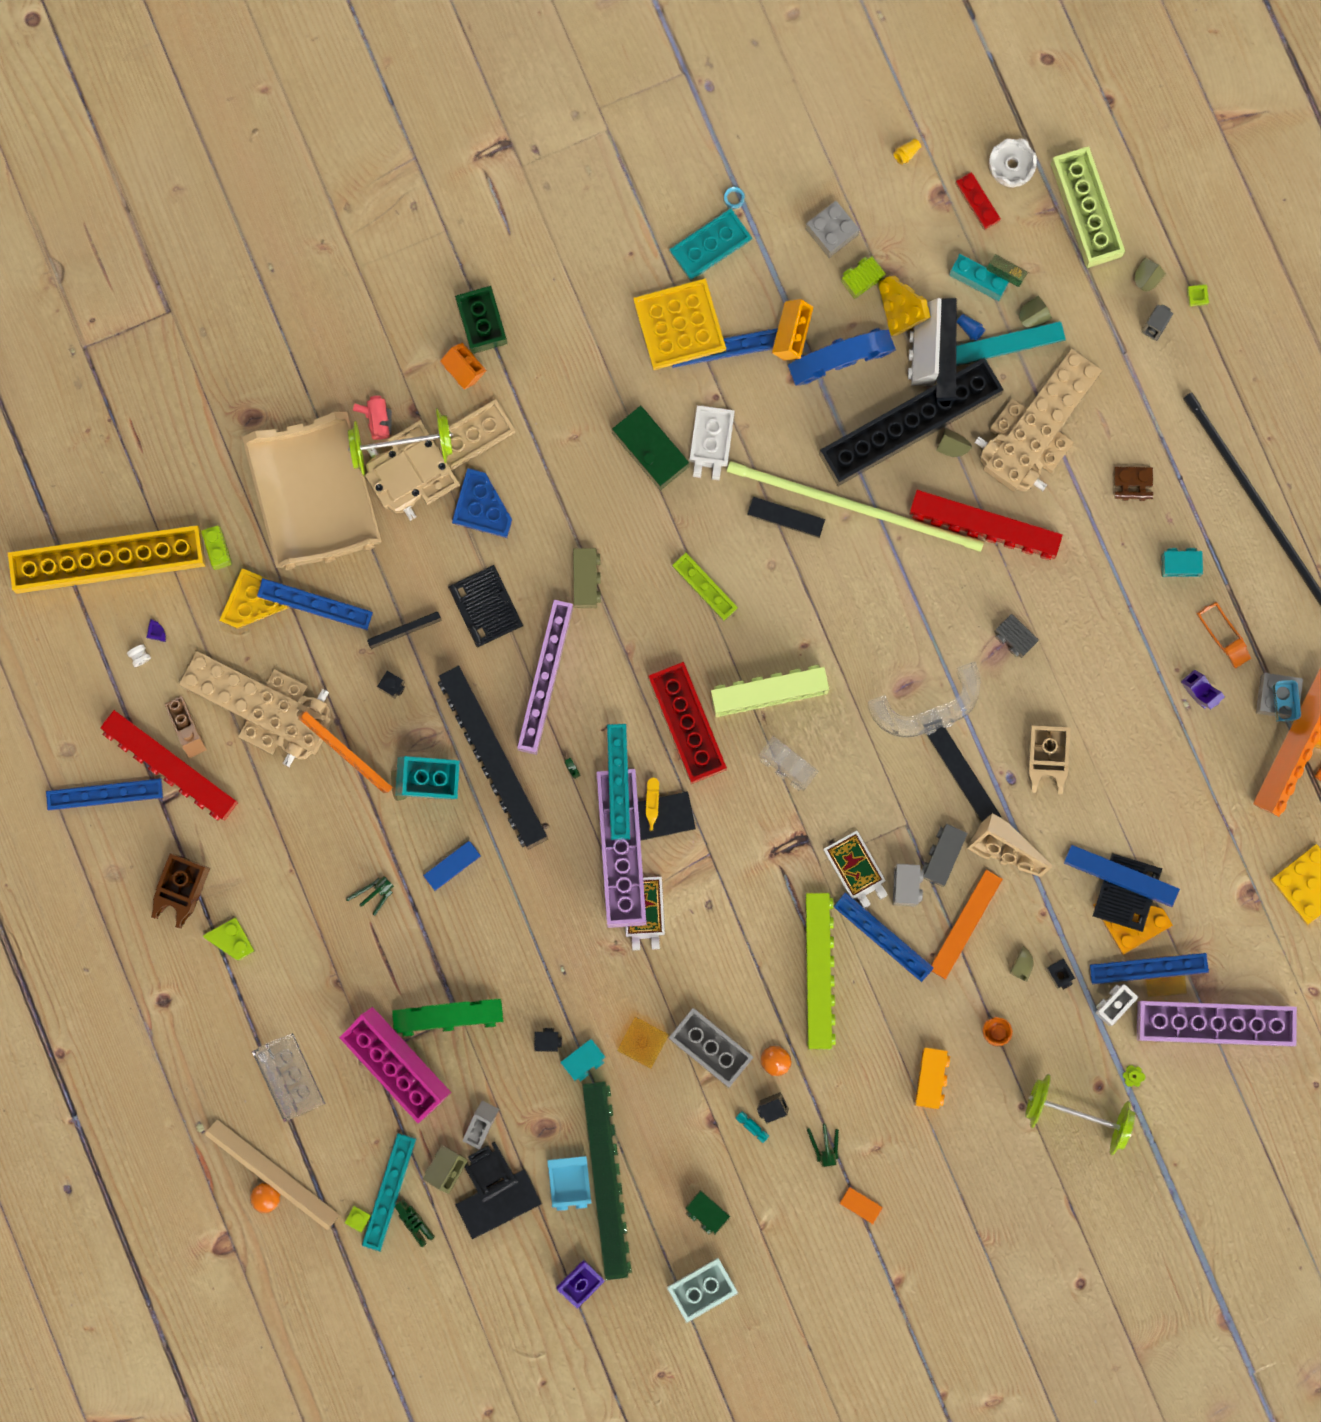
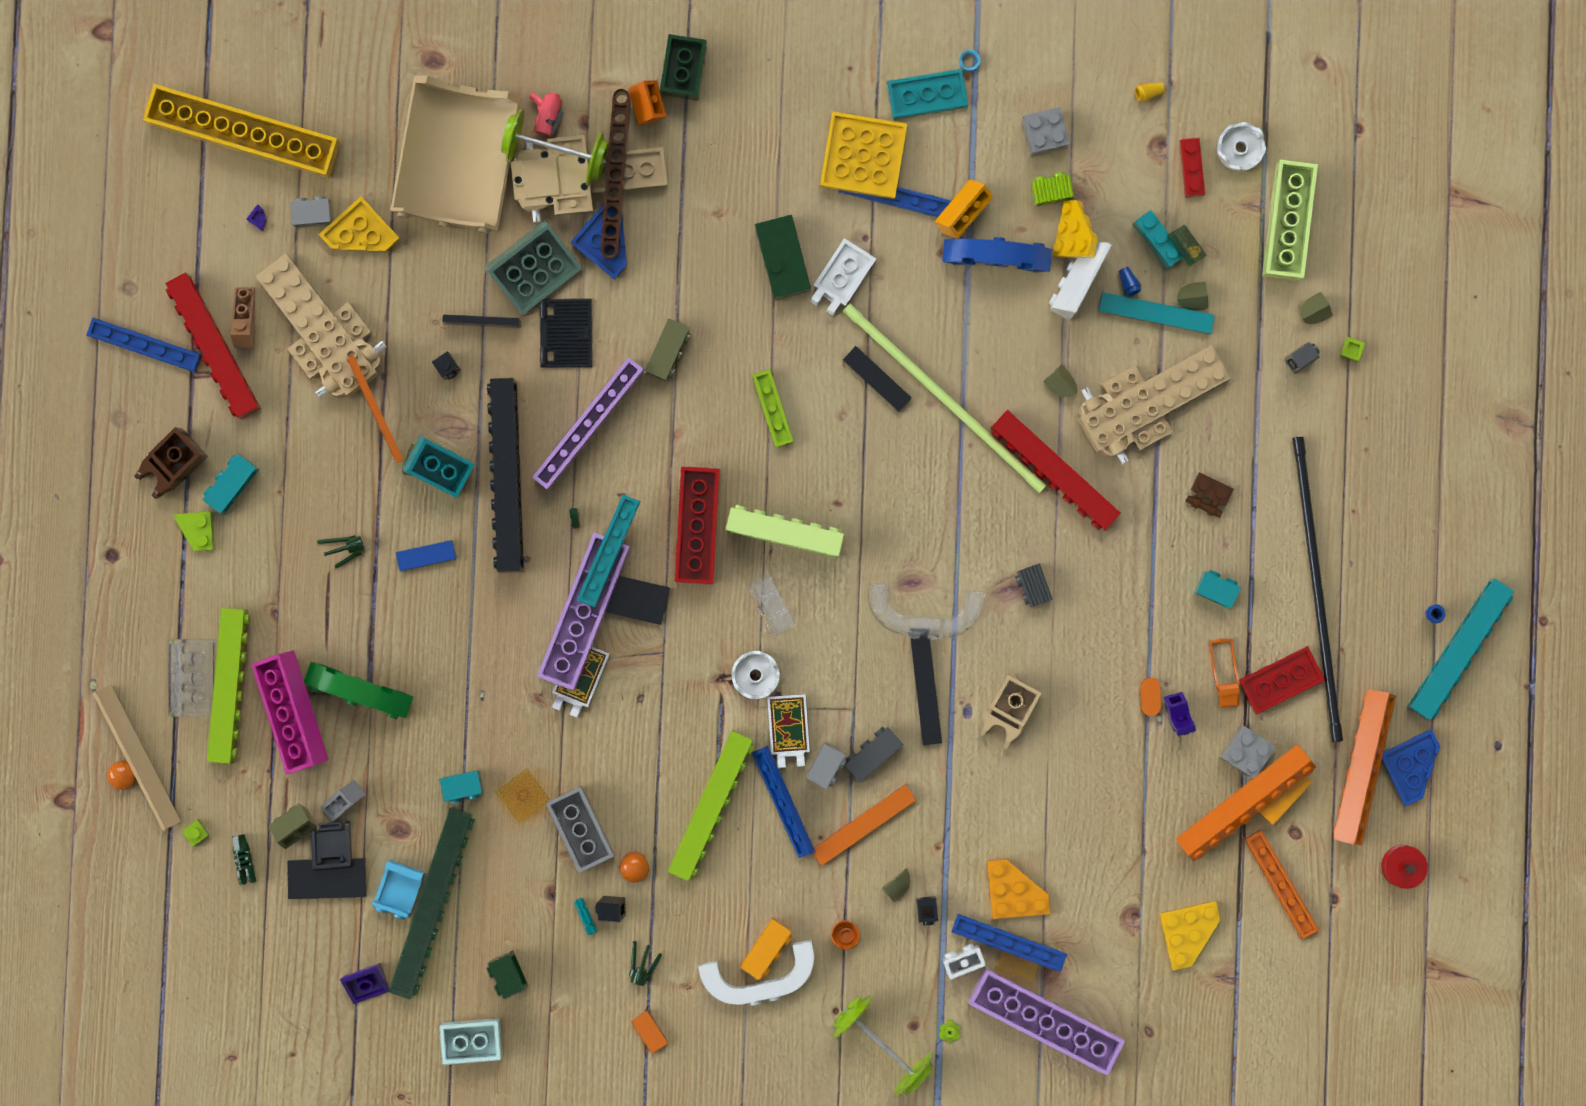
camera: 25 degrees right, 5 degrees up
(138, 655) = (231, 233): white wheel -> none
(203, 603) = (311, 212): none -> light grey brick
(216, 547) = (346, 166): lime brick -> none
(242, 883) = (230, 483): none -> teal brick
(314, 604) = (411, 259): blue tile -> none
(325, 1068) = (227, 685): none -> lime brick
(389, 1192) = (234, 822): teal tile -> none
(428, 560) = (533, 267): none -> sand green slope
(465, 433) = (615, 165): none -> reddish brown beam
(547, 1041) = (437, 753): black brick -> none
(652, 801) = (633, 581): yellow piece -> none
(810, 821) = (769, 674): none -> white plate
(909, 423) = (1032, 344): black brick -> none
(948, 351) = (1096, 293): black tile -> none
(954, 1113) = (764, 990): none -> white arch
(1002, 842) = (931, 766): tan wedge -> none
(1119, 904) = (1022, 865): black window -> none
(1122, 876) = (1024, 848): blue tile -> none
(1168, 687) = (1150, 696): none -> orange tile
(1278, 617) = (1281, 680): none -> red plate
(1294, 697) = (1259, 760): medium azure piece -> none

